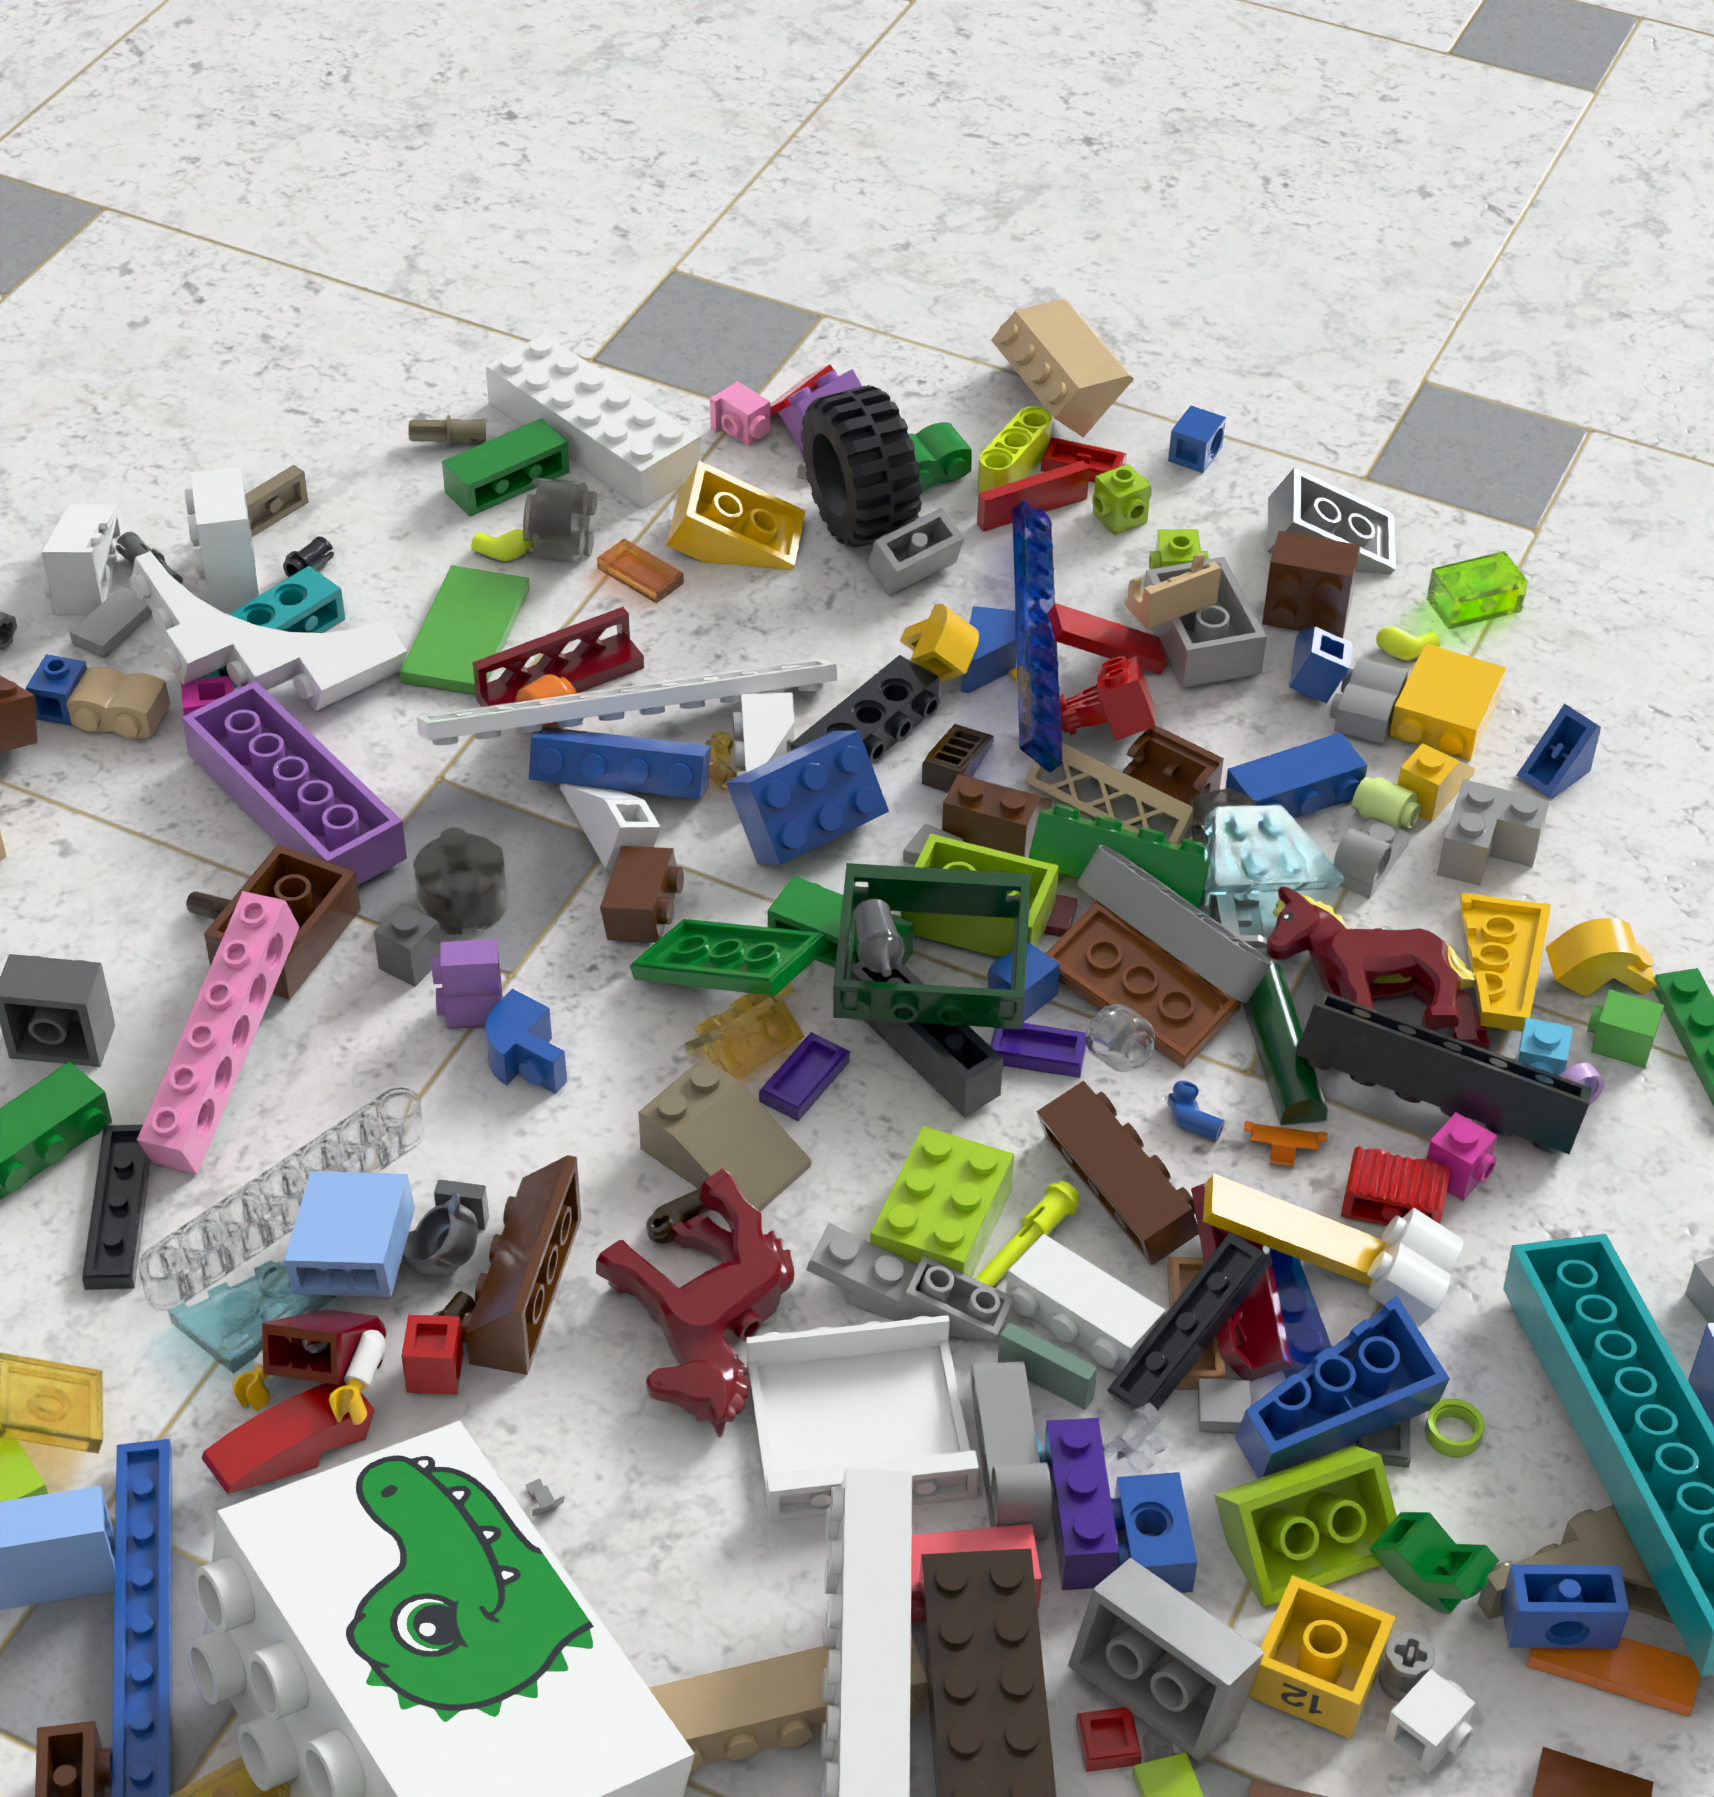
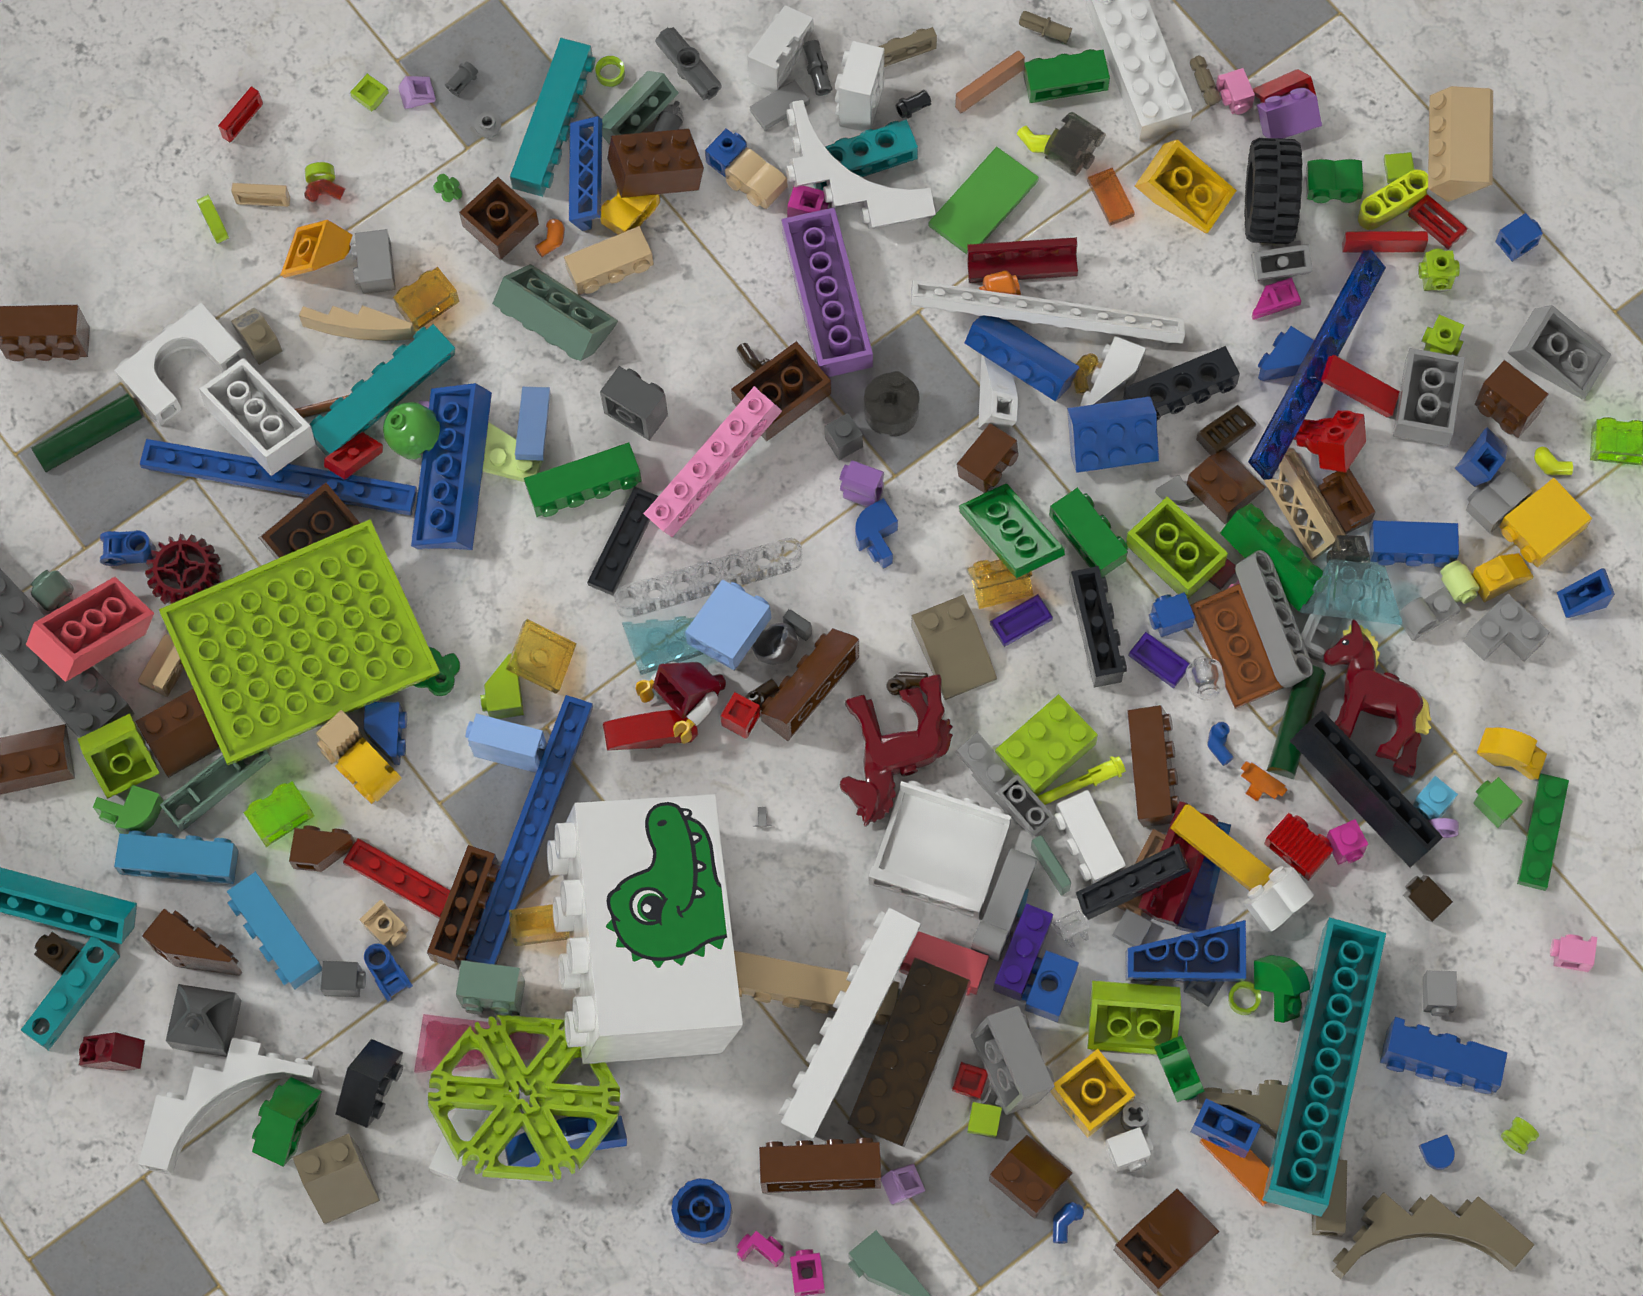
camera: 30 degrees right, 25 degrees up
(403, 503) = (989, 81): none -> nougat tile
(693, 420) = (1205, 80): none -> dark tan axle
(879, 943) = (1084, 574): piece -> none
(932, 591) = (1277, 298): none -> dark pink tile
(938, 893) = (1140, 545): dark green window -> none
(942, 643) = (1256, 351): yellow brick -> none
(992, 422) = (1397, 165): none -> lime tile
(1176, 595) = (1410, 380): tan hinge -> none
(1505, 955) = (1461, 720): yellow wing -> none
(1507, 1361) = (1285, 980): none -> green brick
(1622, 1177) = (1426, 897): none -> dark brown brick

